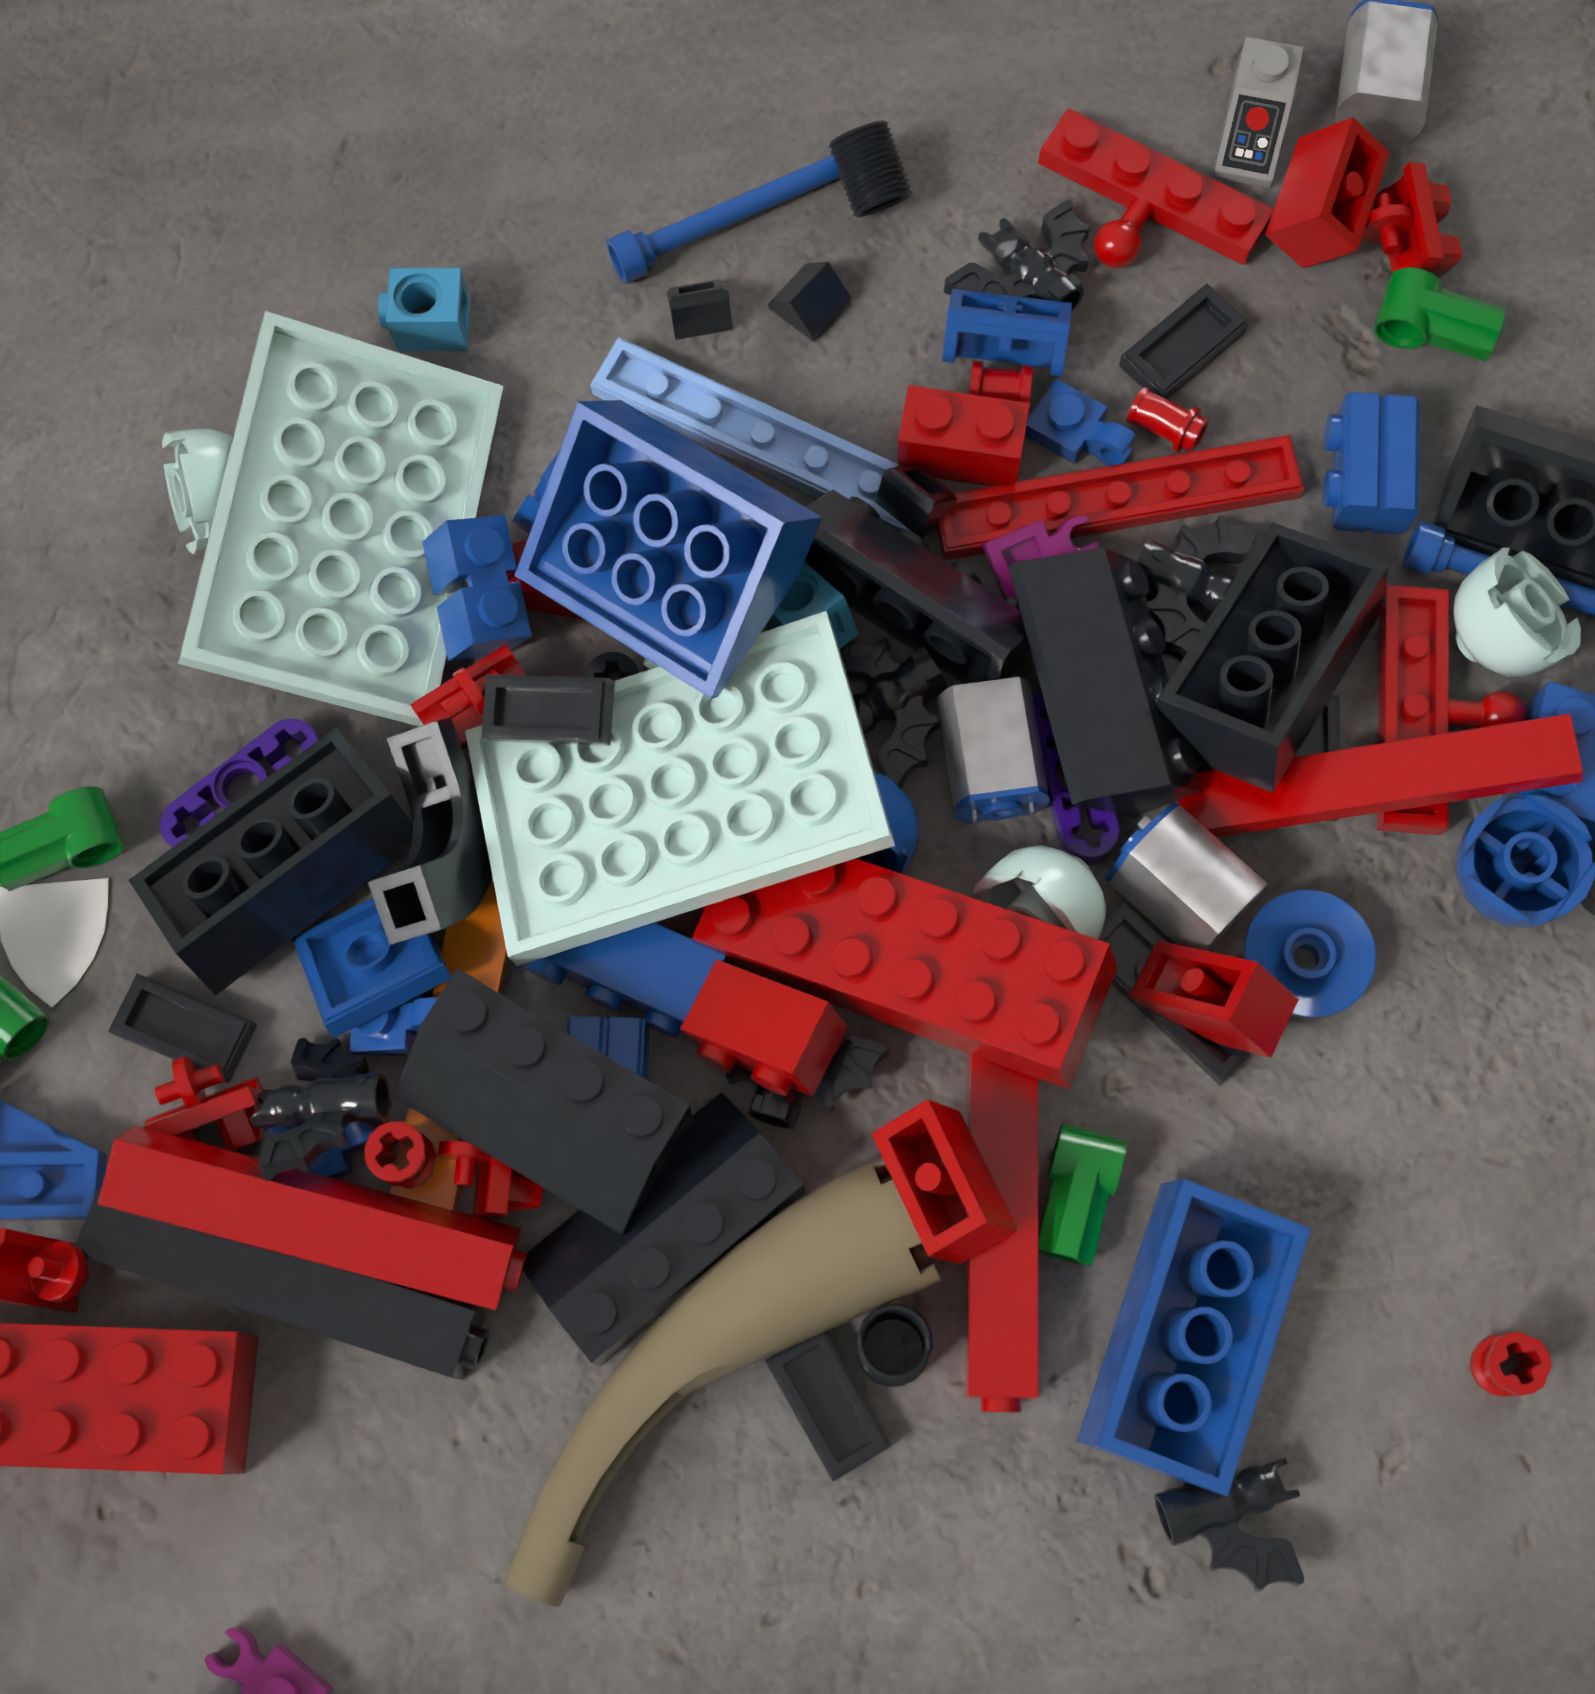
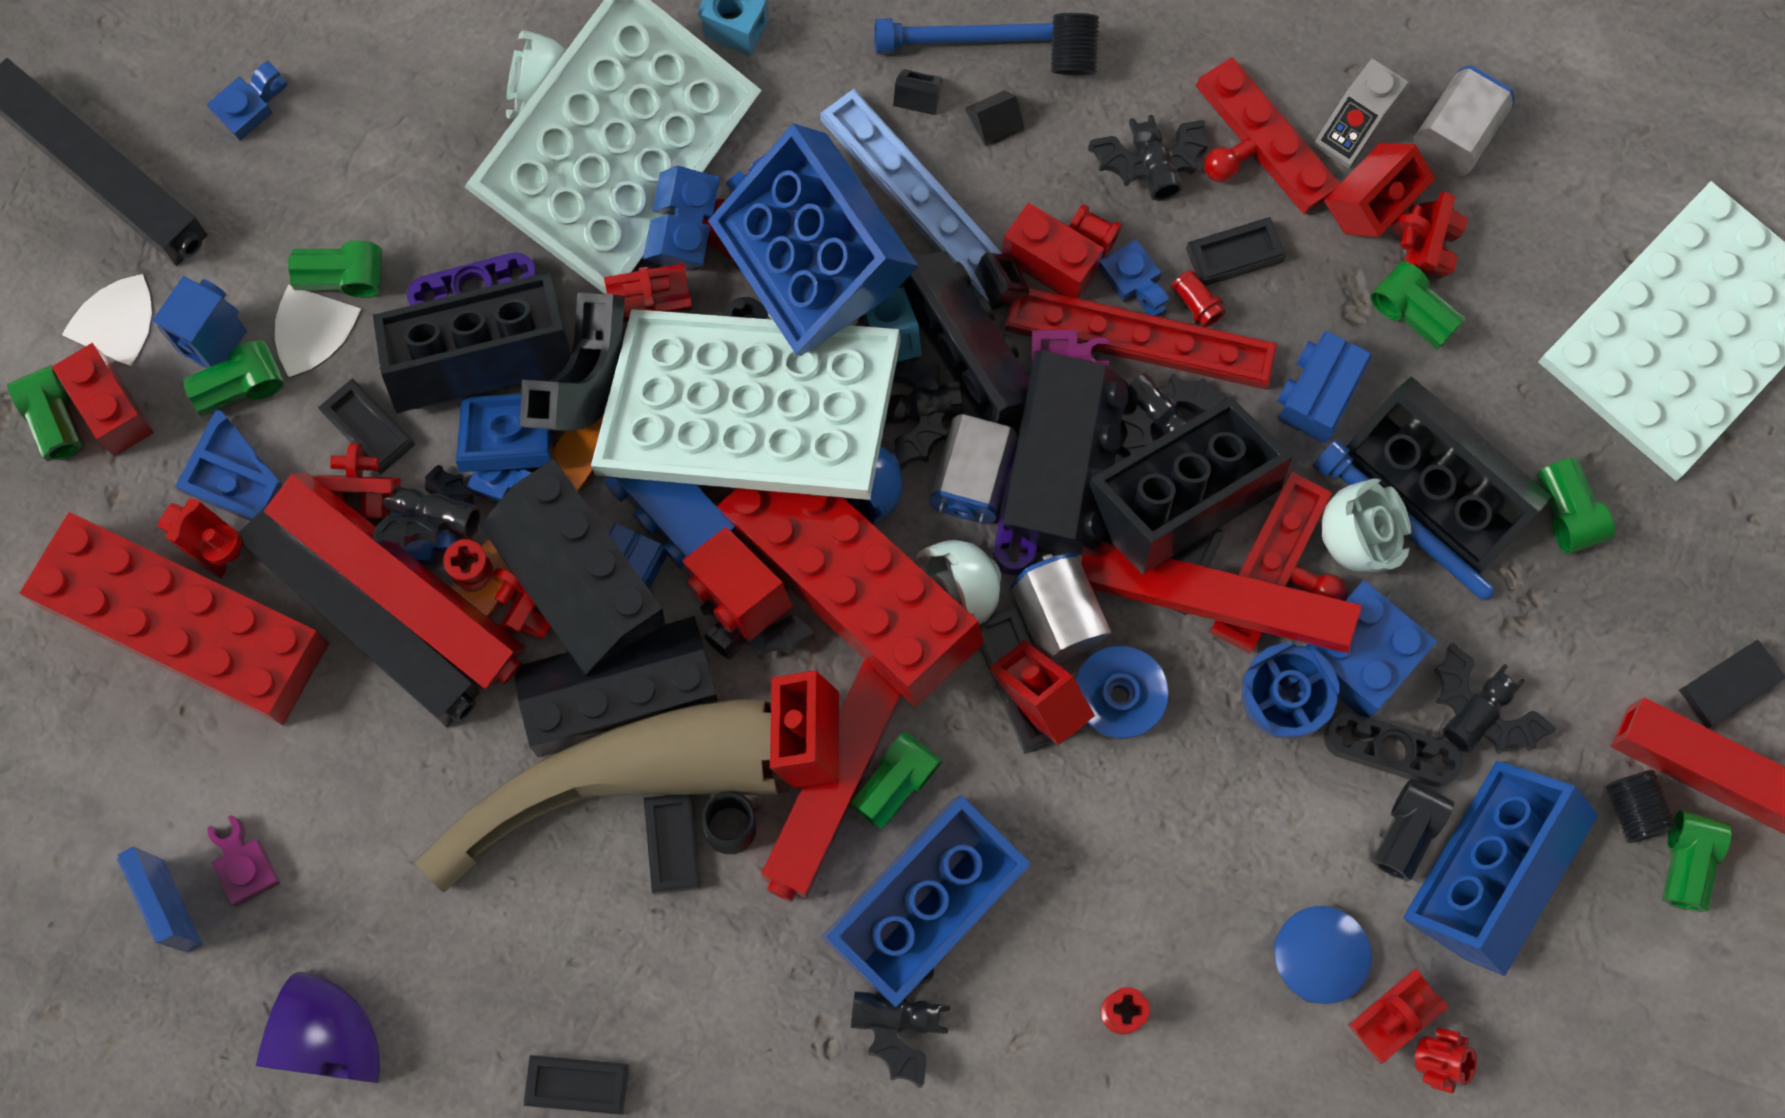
camera: 15 degrees right, 0 degrees up
(548, 709) = (689, 317): black tile -> none
(1007, 329) = (1115, 191): blue hinge -> none

